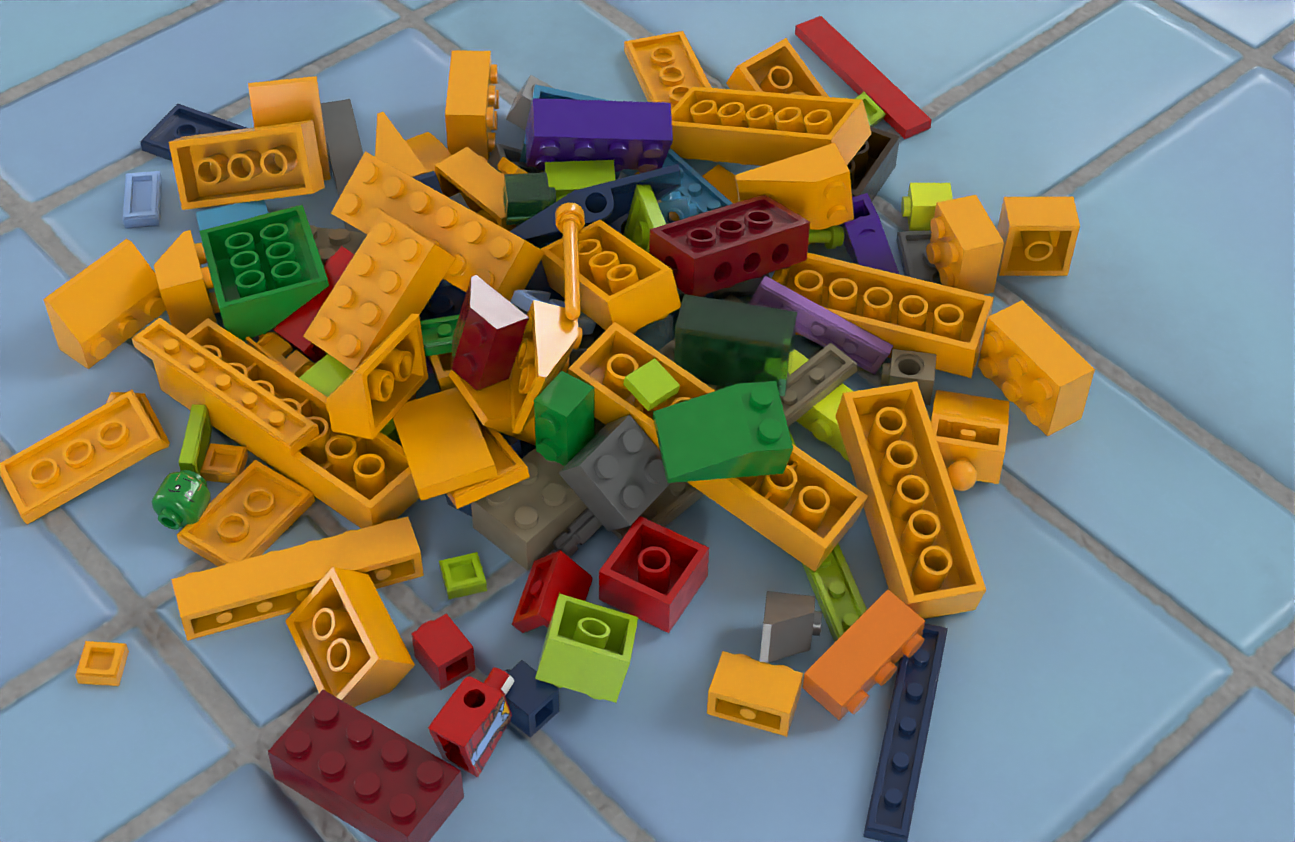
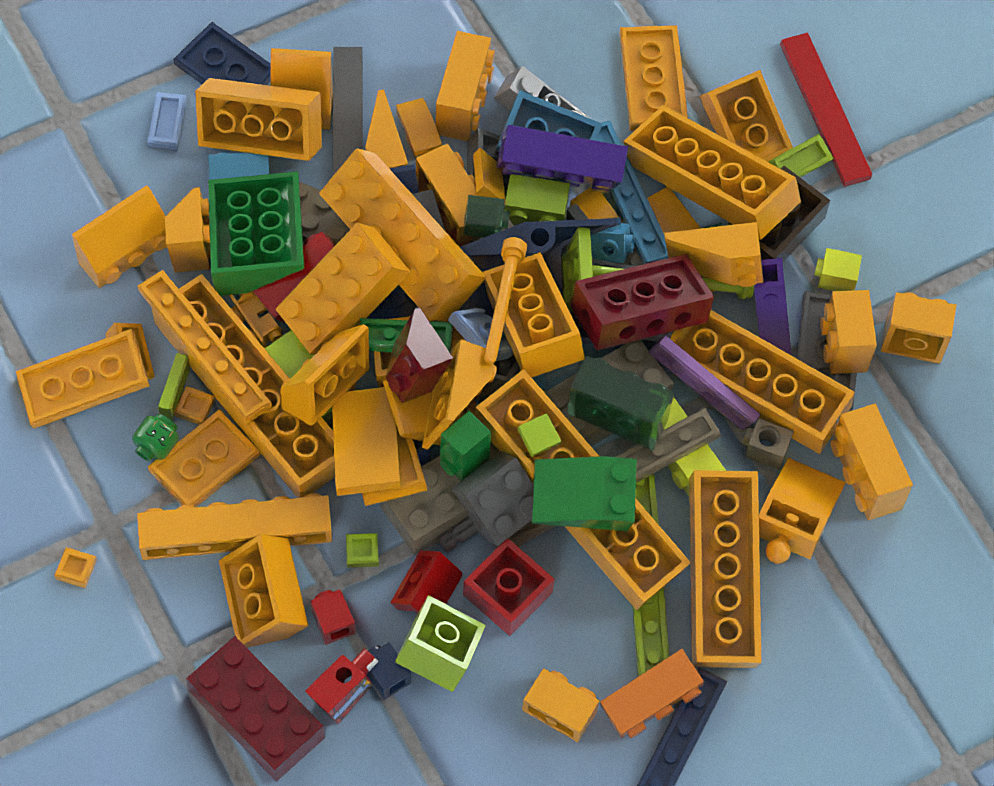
camera: 10 degrees right, 15 degrees up
(788, 625) = (600, 655): dark grey slope -> none

